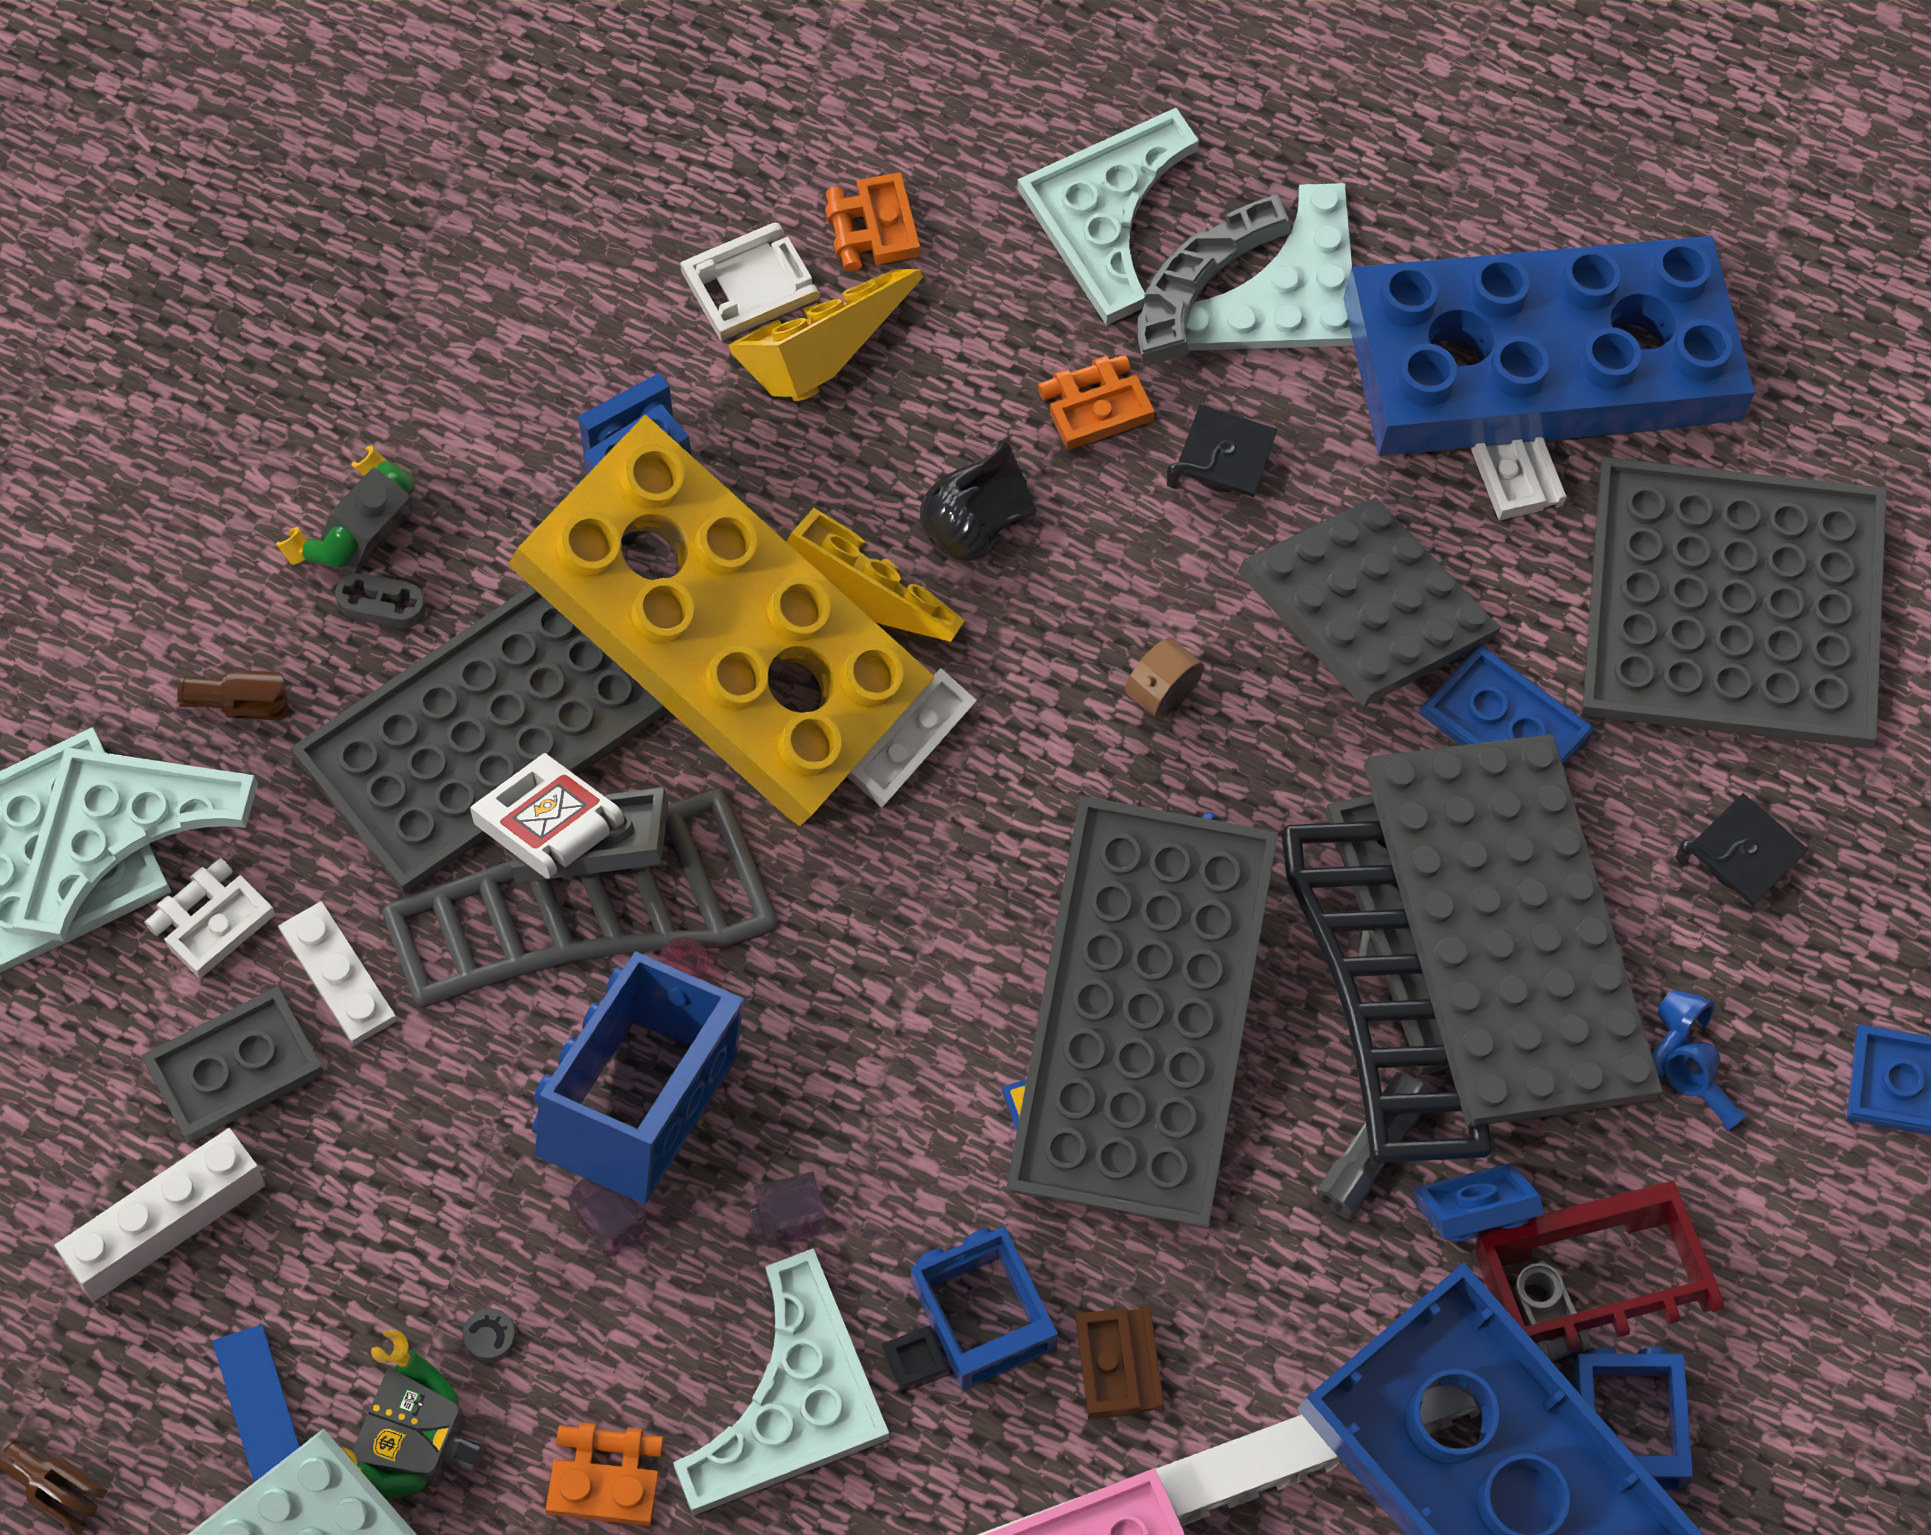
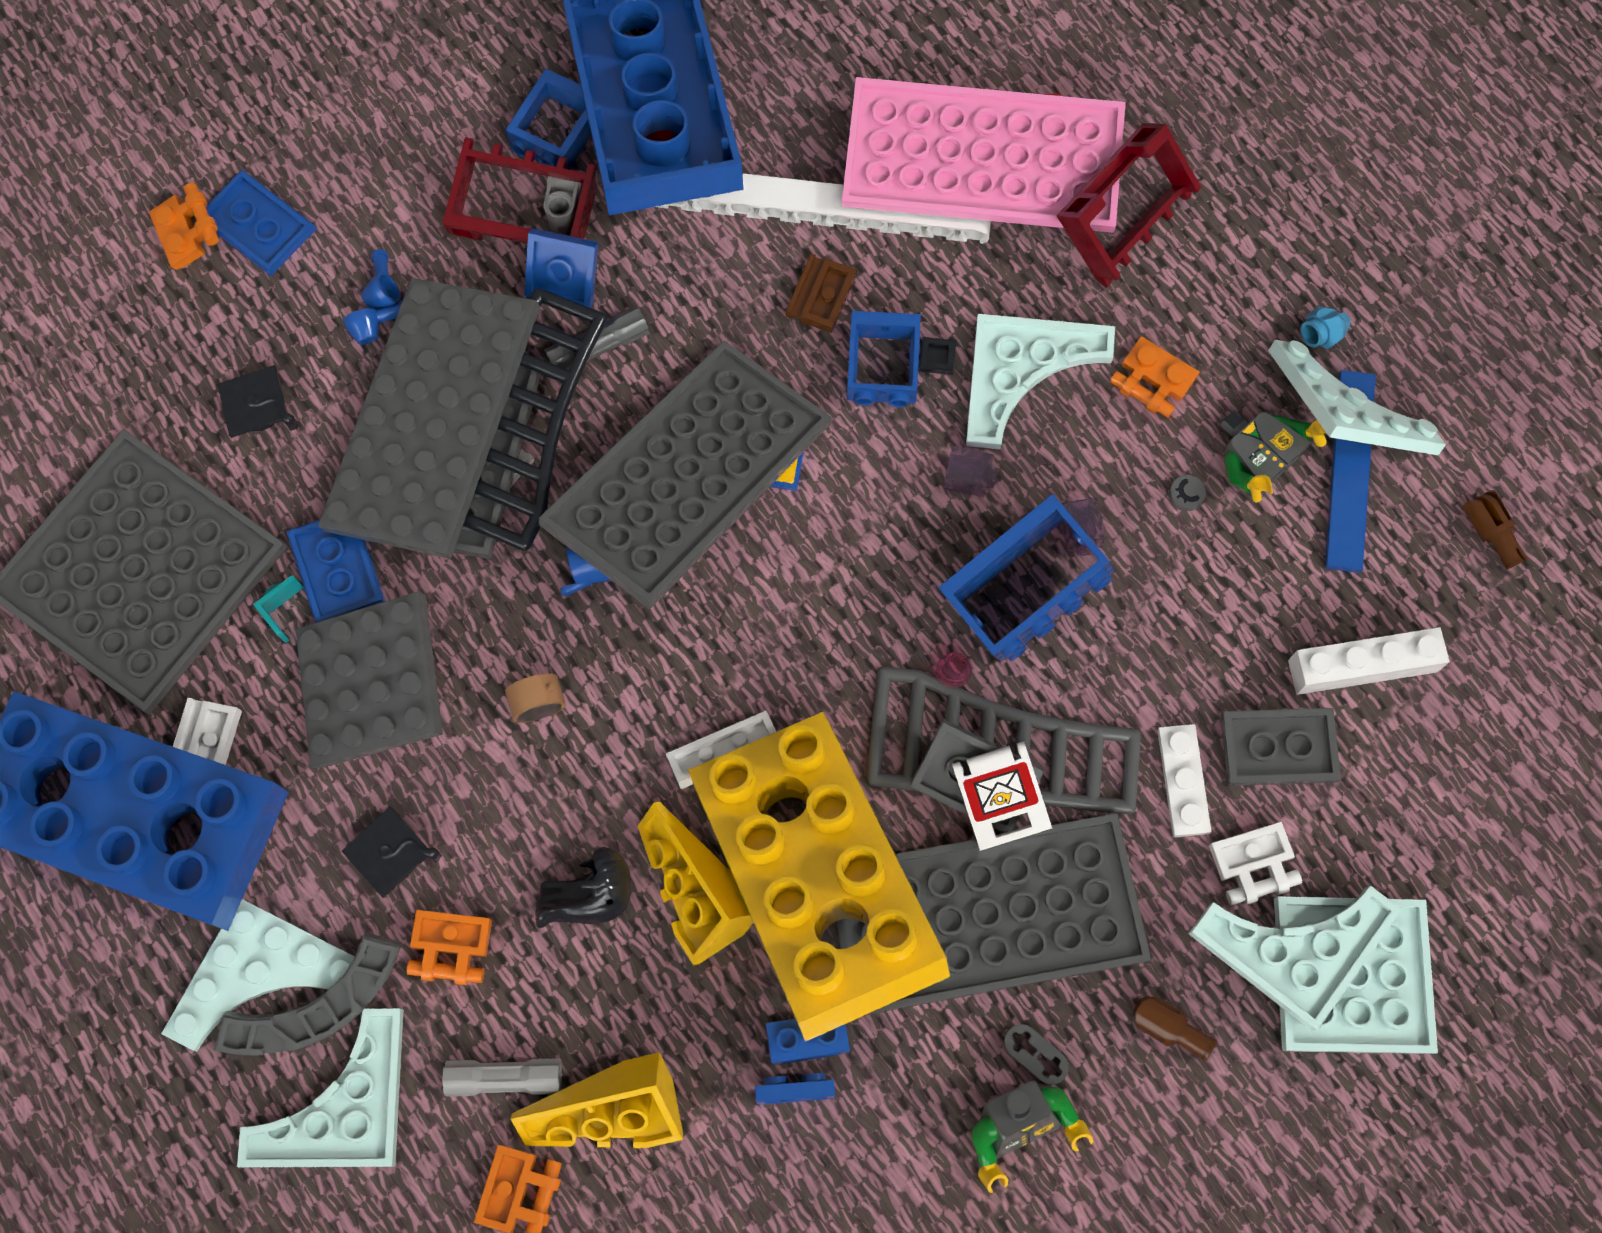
camera: 150 degrees left, 10 degrees up
(755, 279) = (630, 1191): white container -> none
(926, 322) = (473, 1077): none -> light grey axle
(1547, 626) = (275, 597): none -> teal bracket

